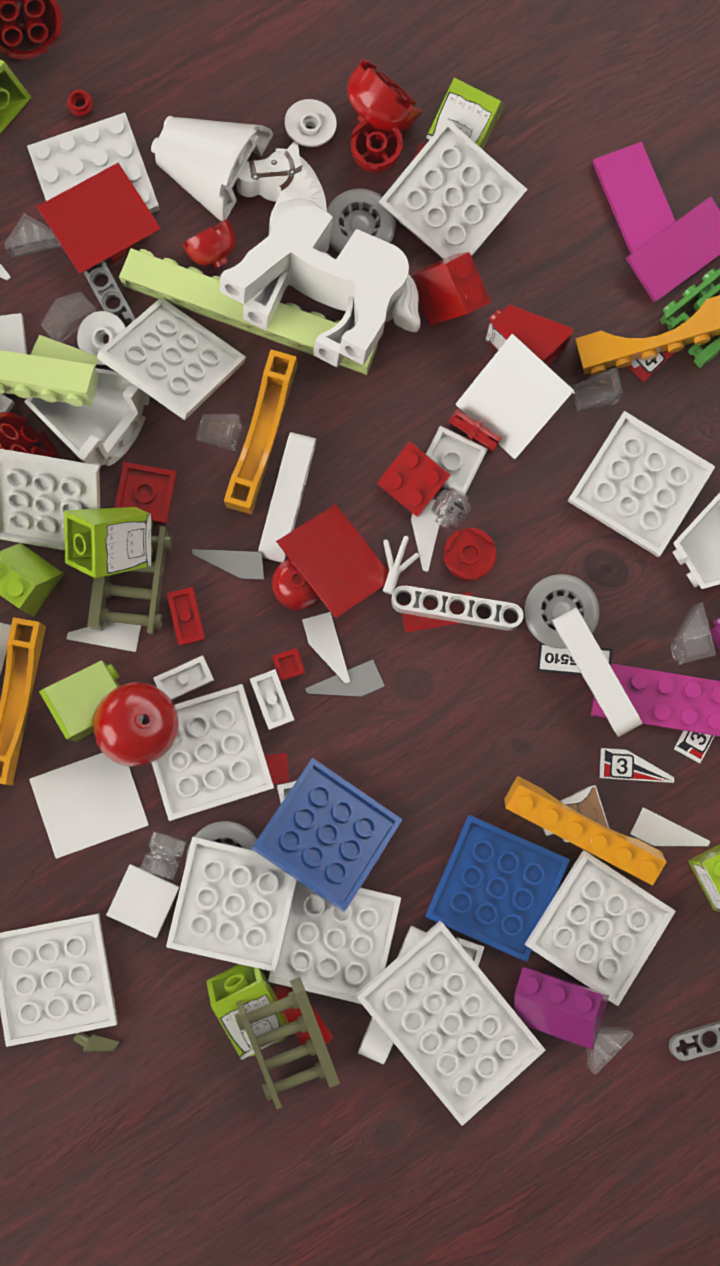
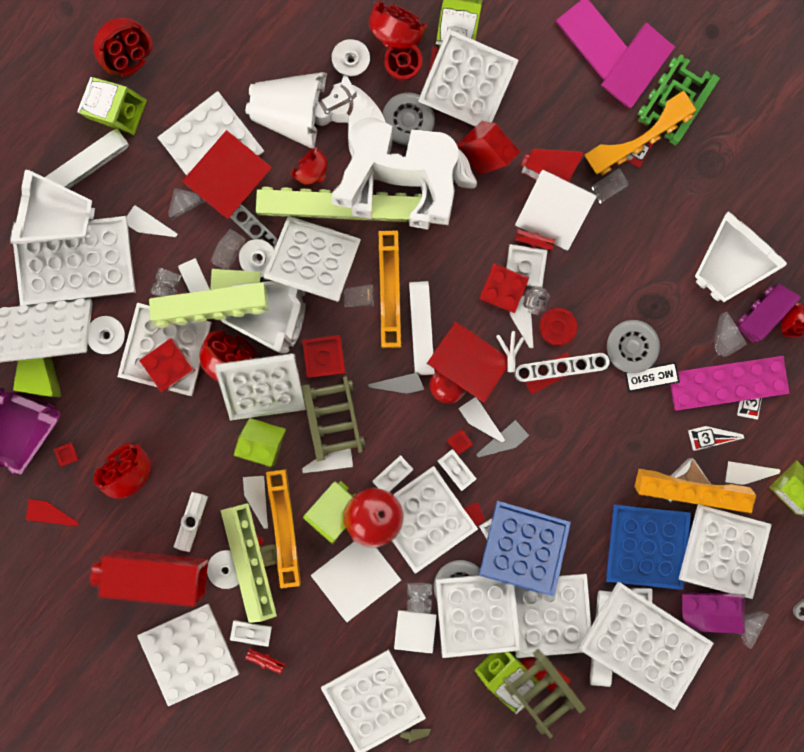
camera: 15 degrees left, 5 degrees up
(80, 96) = (183, 88): red plate -> none
(107, 540) = (313, 400): lime slope -> none
(186, 616) = (380, 432): red plate -> none
(597, 672) = (670, 381): white beam -> none
(641, 484) = (660, 241): white plate -> none

